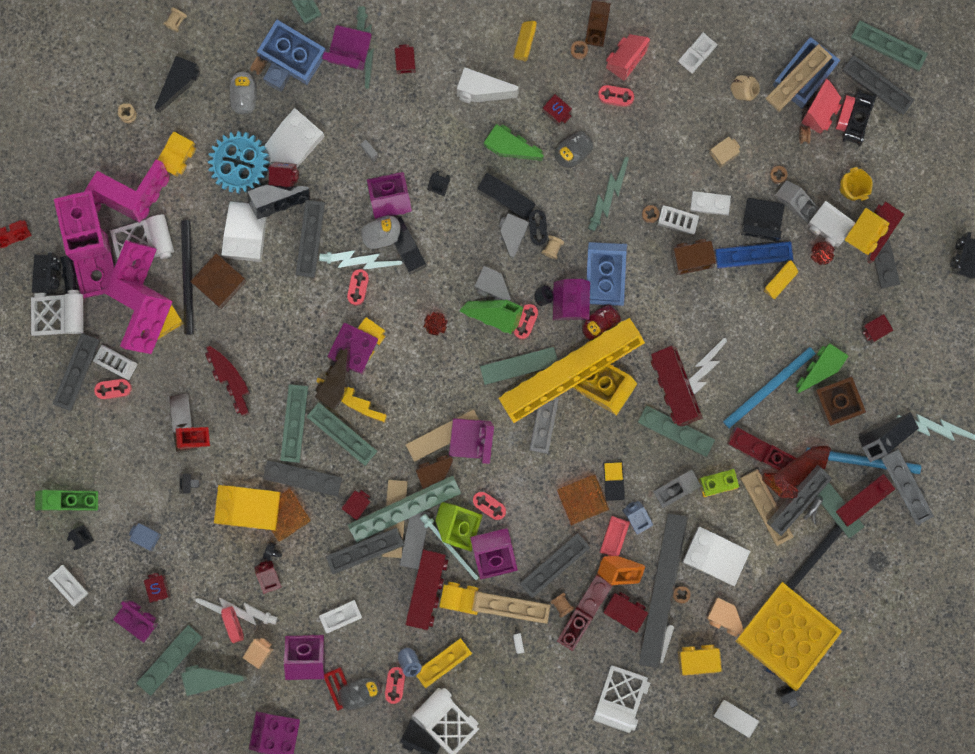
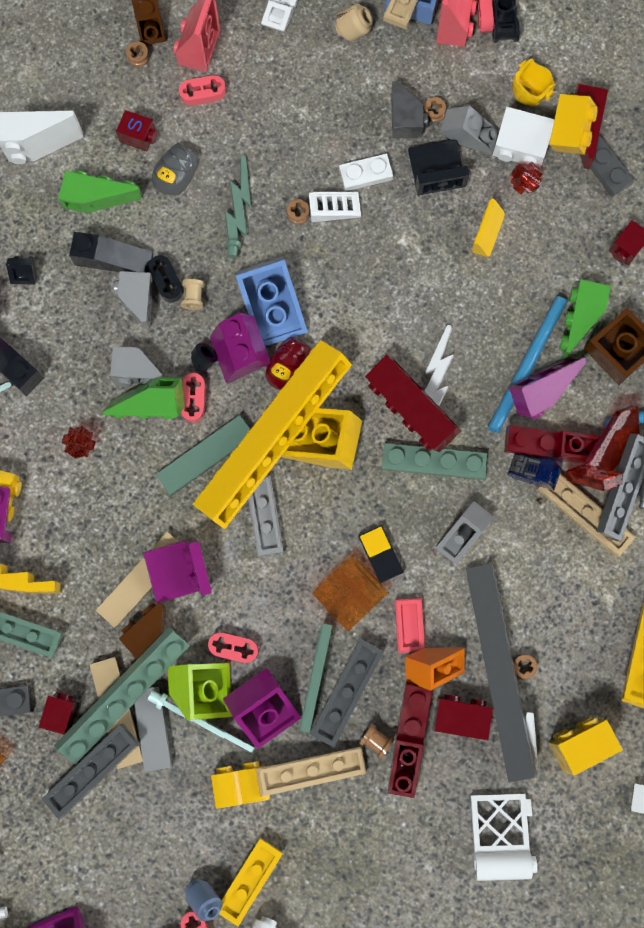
camera: 20 degrees left, 5 degrees down
(340, 616) = (90, 872): white plate -> none
(426, 589) = (190, 792): dark red brick -> none
(518, 643) = (339, 815): white tile -> none
(525, 40) = (68, 66): yellow slope -> none
(537, 547) = (315, 679): none -> sand green tile
(637, 517) = (429, 588): sand blue bracket -> none
(693, 257) = (371, 239): reddish brown brick -> none
(716, 556) = (547, 599): white slope -> none
(718, 483) = (514, 504): lime hips -> none
(725, 151) = (359, 105): tan brick -> none
(725, 615) = (593, 671): light nougat slope -> none
(742, 465) = (535, 471): none -> clear blue leg
(754, 255) = (442, 213): blue tile -> none
(756, 171) = (407, 113): none -> flat silver slope
(770, 410) = (544, 388): none -> slope
(805, 135) = (447, 51): medium nougat bush -> none

